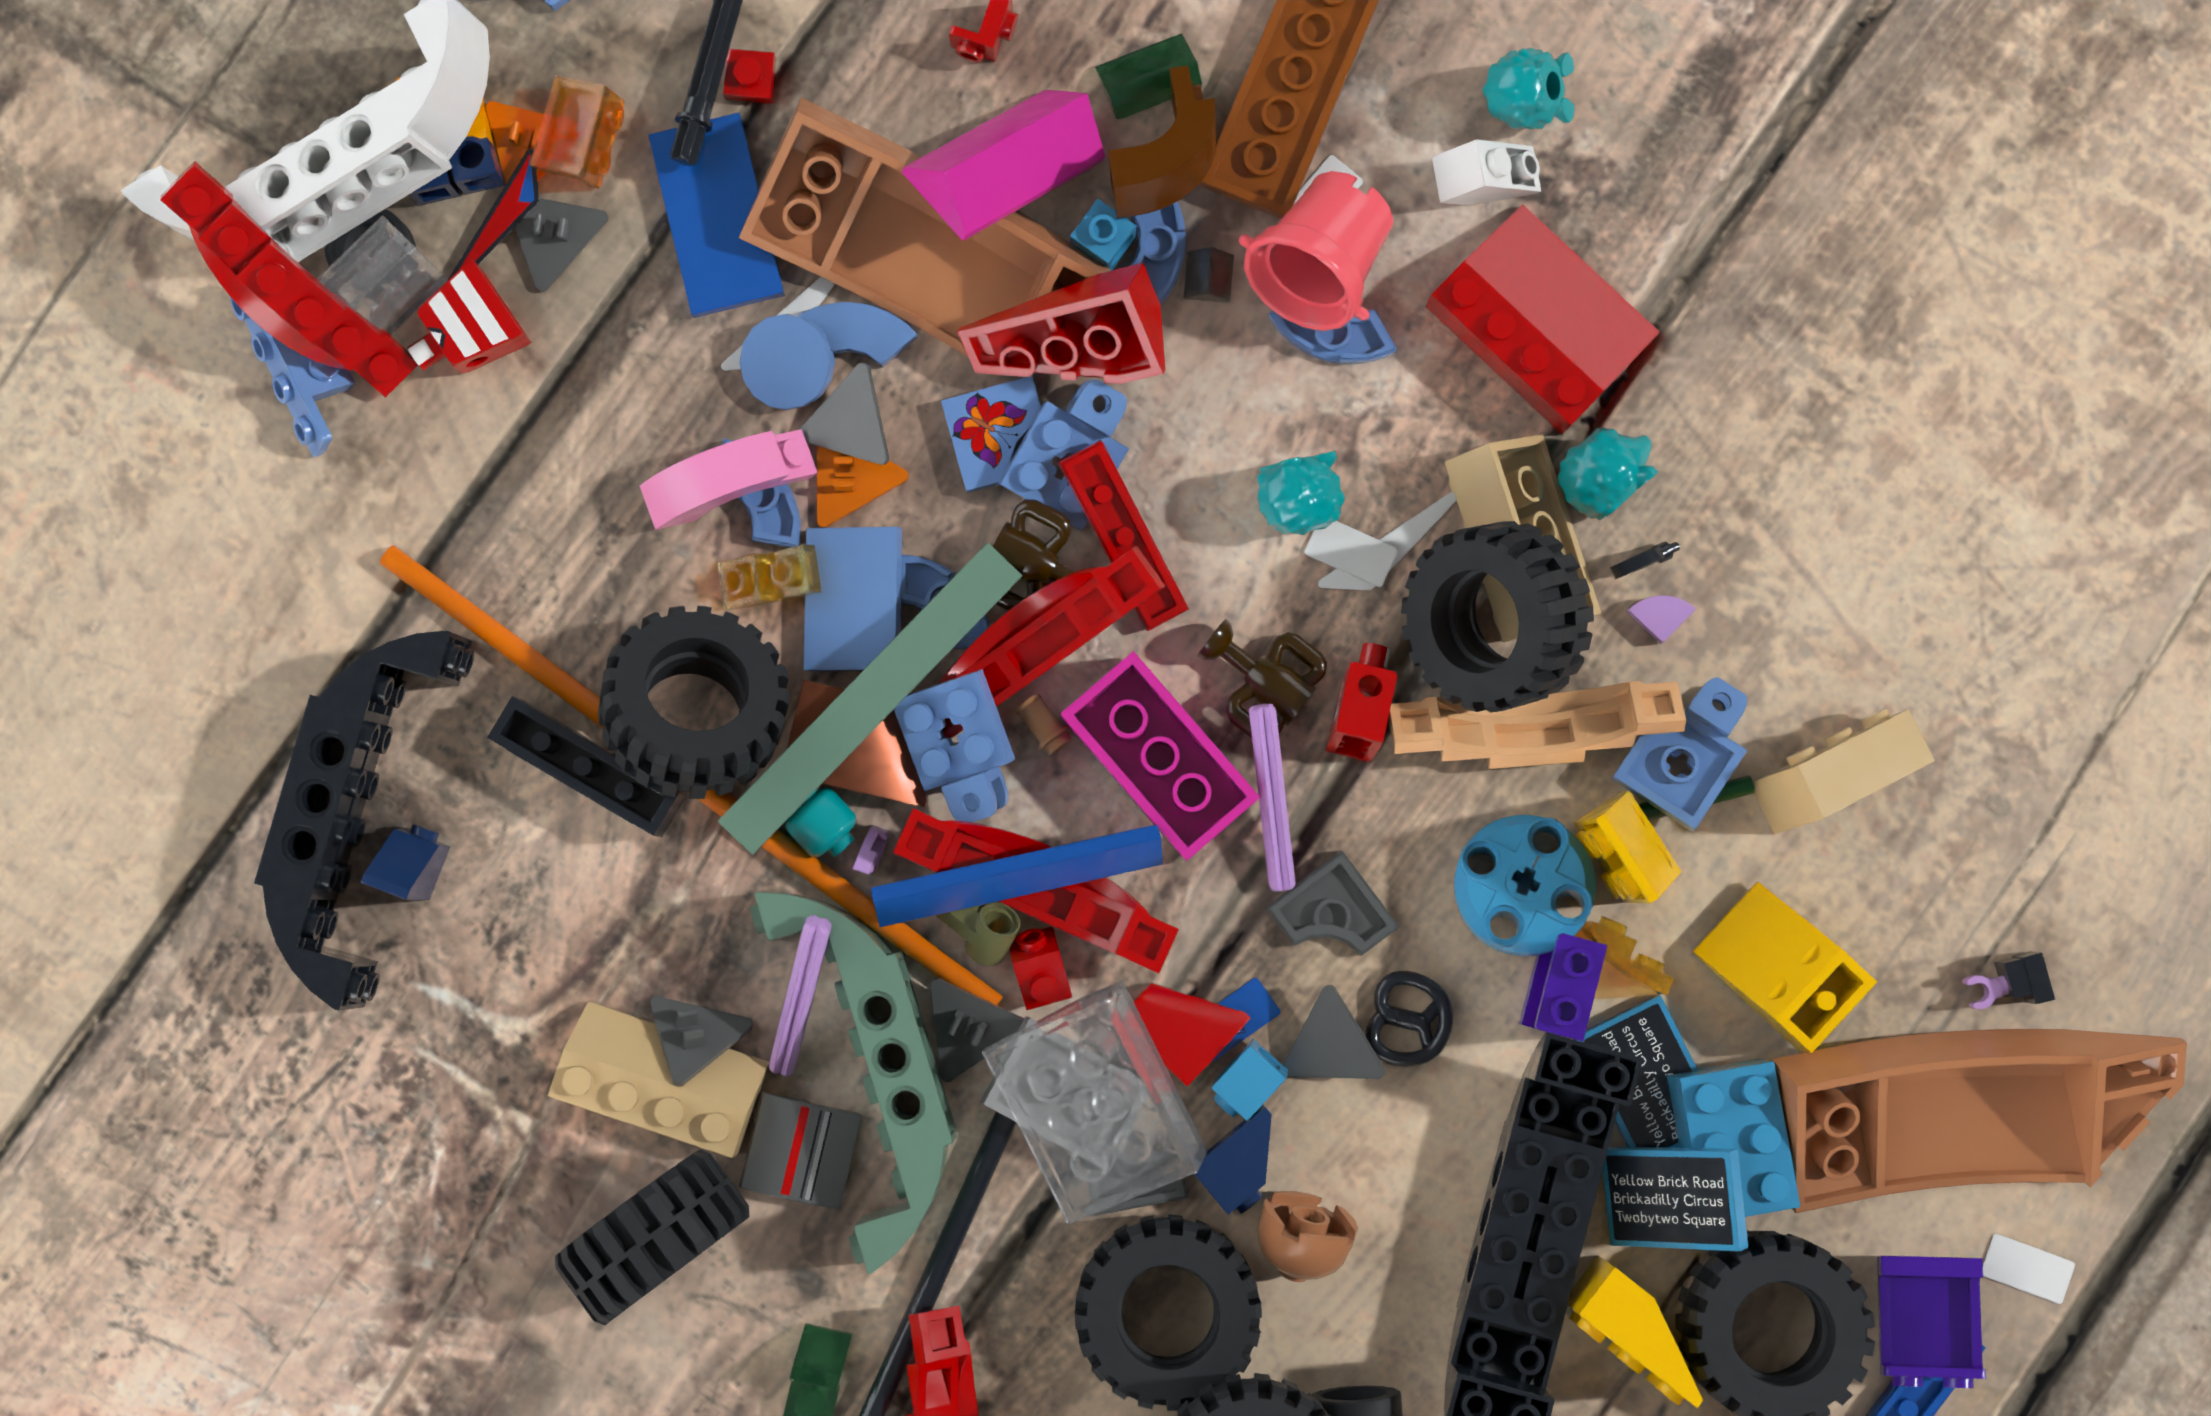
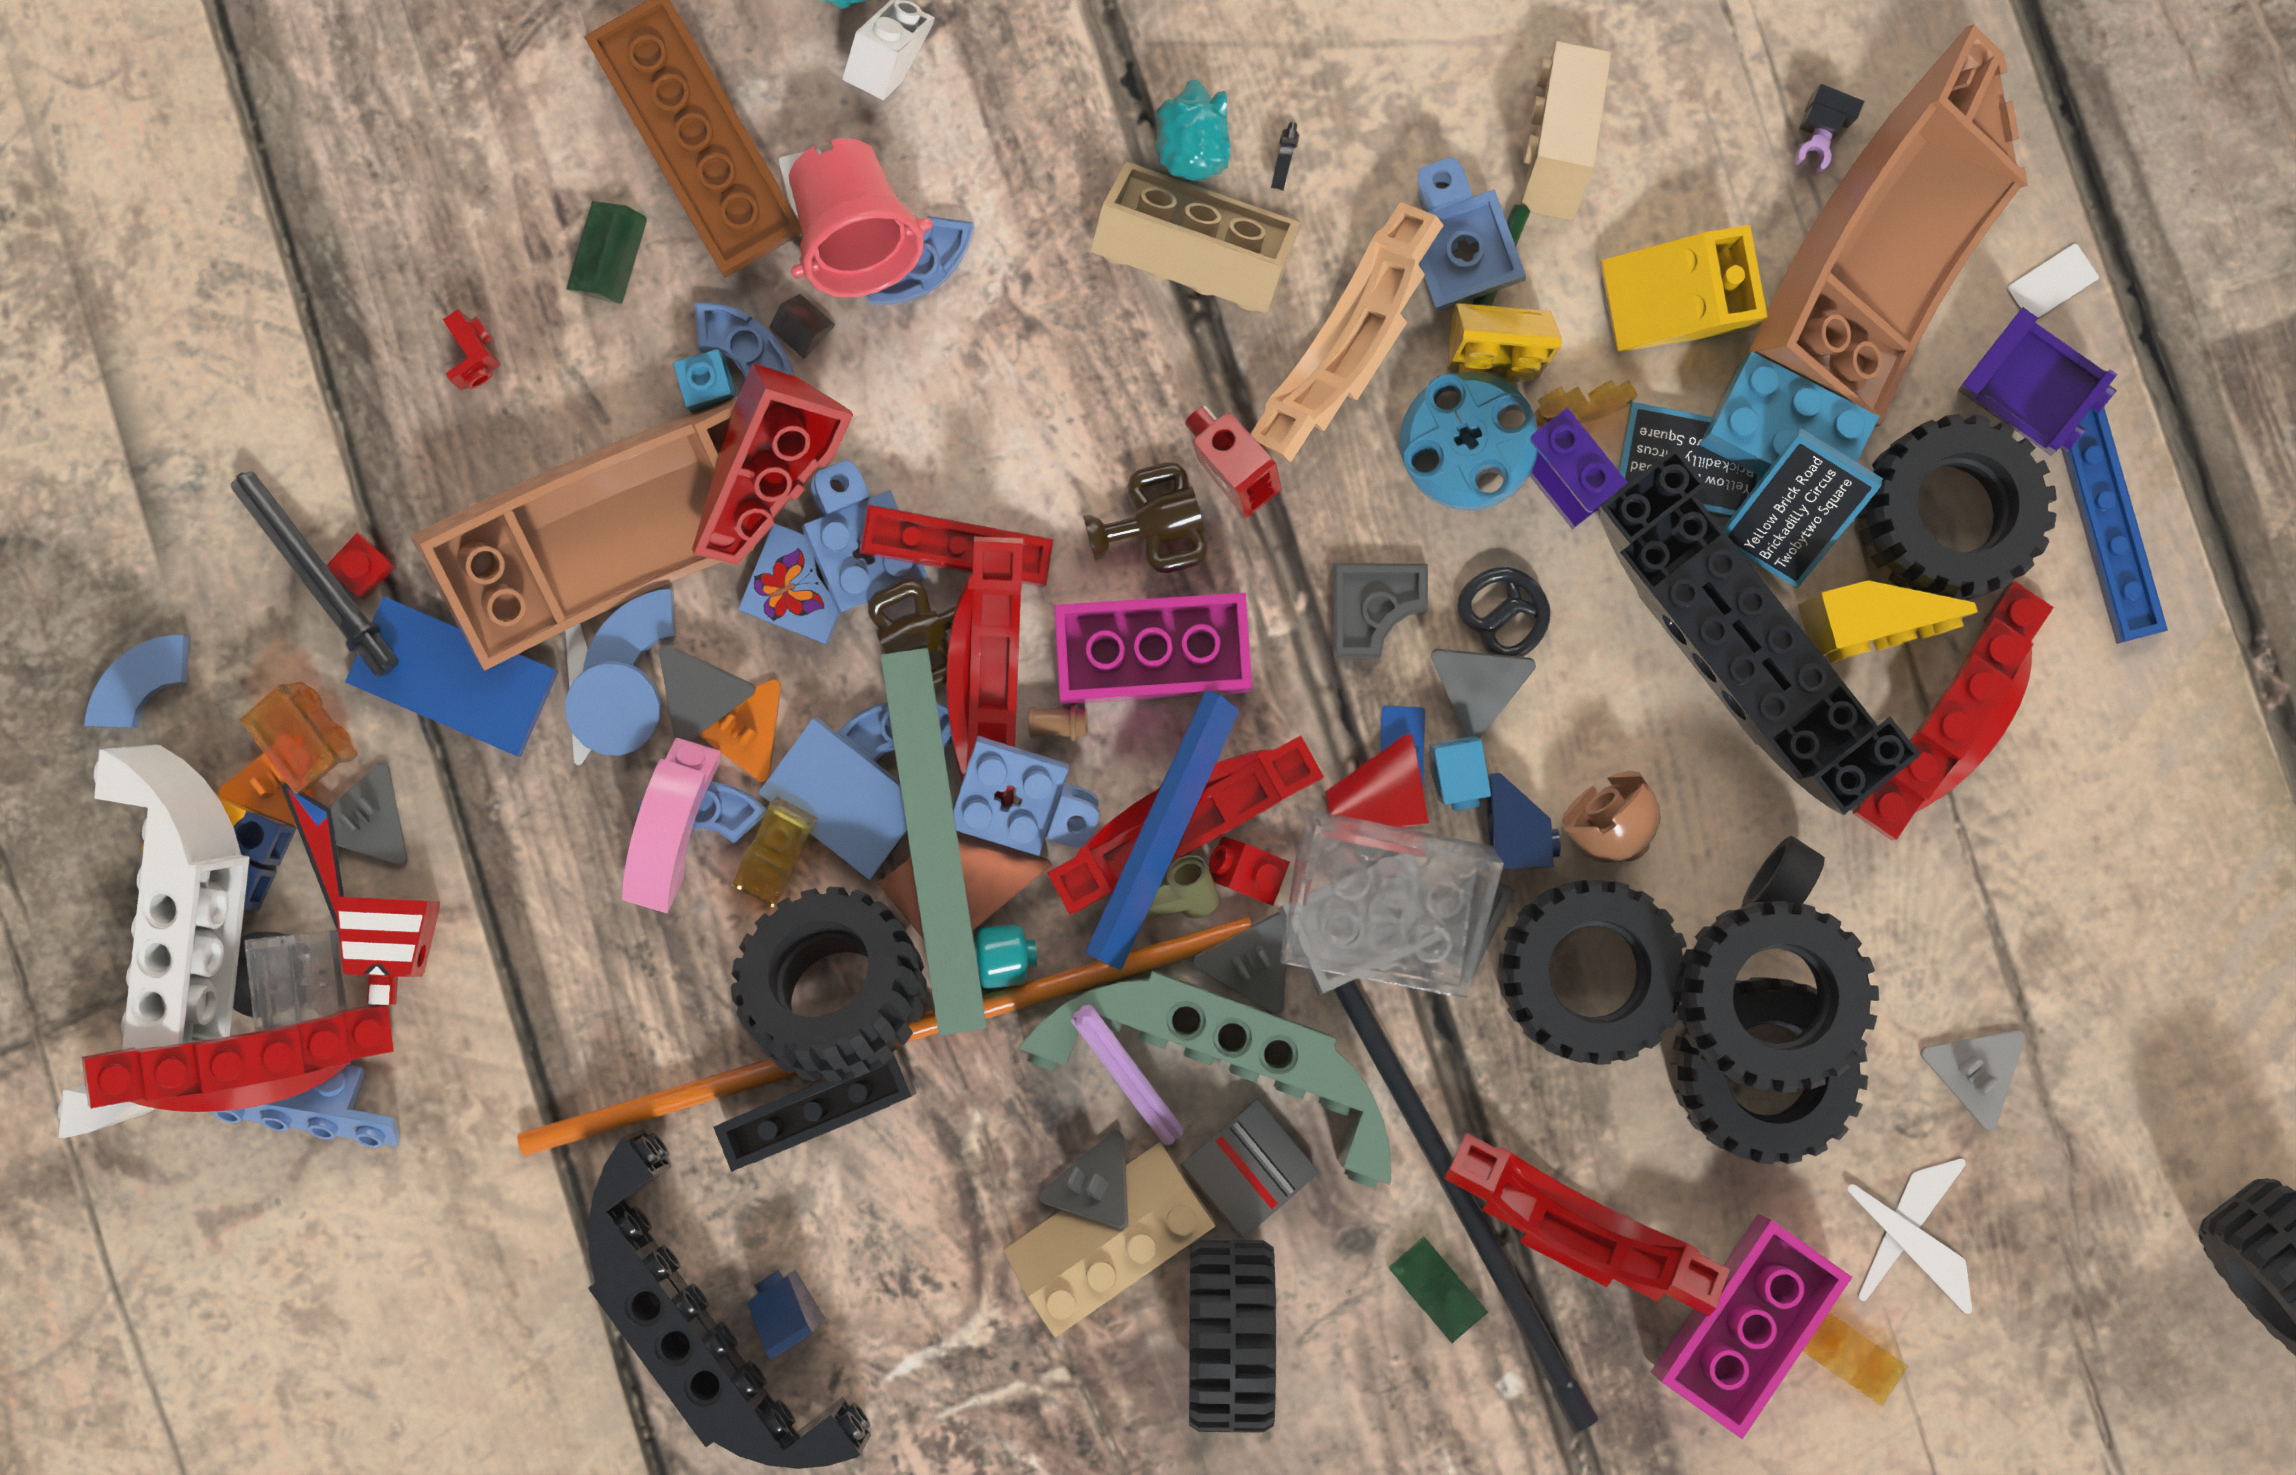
camera: 50 degrees left, 0 degrees up
(871, 850) = (1054, 933): lavender tile -> none
(1009, 160) = (589, 409): dark pink slope -> none
(1173, 165) = (691, 286): reddish brown arch -> none
(1273, 797) = (1257, 587): lavender axle -> none
(1300, 494) = (1030, 381): teal animal -> none
(1352, 552) = (1104, 379): white sticker -> none
(1402, 538) = (1127, 368): white sticker -> none
(1541, 318) = (1035, 93): slope -> none
(1548, 607) = (1253, 245): black tyre -> none
(1661, 615) = (1337, 177): lavender tile -> none

